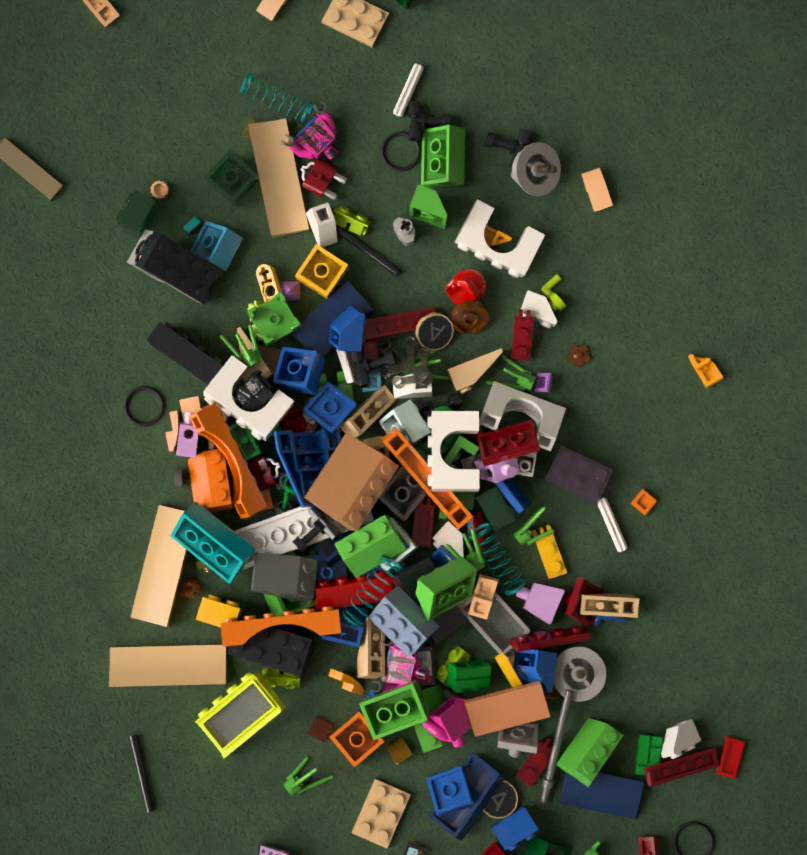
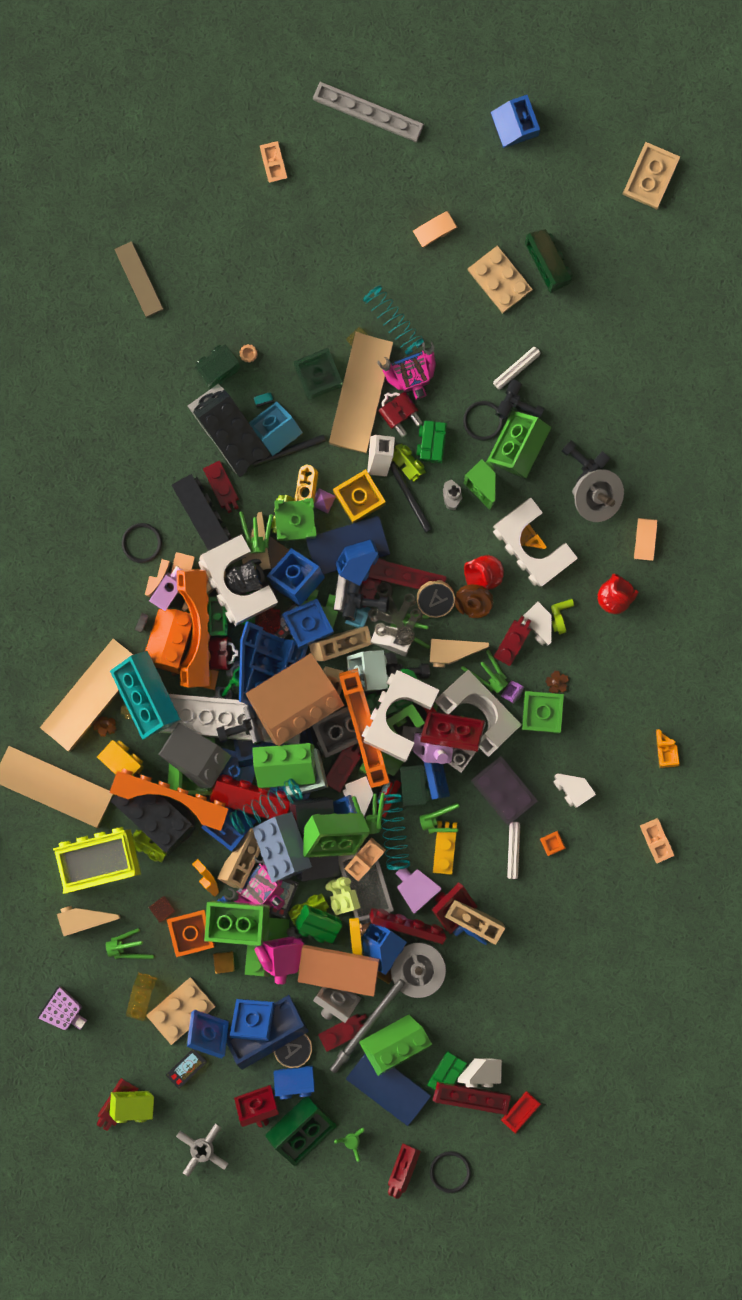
camera: 30 degrees right, 0 degrees up
(191, 320) = (221, 485): none -> dark red hinge
(239, 259) = (292, 449): none -> black bar
(249, 774) = (80, 919): none -> tan slope
(338, 817) = (140, 996): none -> clear yellow bracket
(364, 191) = (433, 441): none -> green brick
(416, 823) = (207, 1034): none -> blue tile
(479, 640) = (343, 897): none -> yellowish green plate
(579, 388) = (542, 712): none -> bright green panel
(595, 251) = (616, 595): none -> red hair
(641, 442) = (575, 788): none -> white slope
(735, 455) = (657, 840): none -> light nougat slope

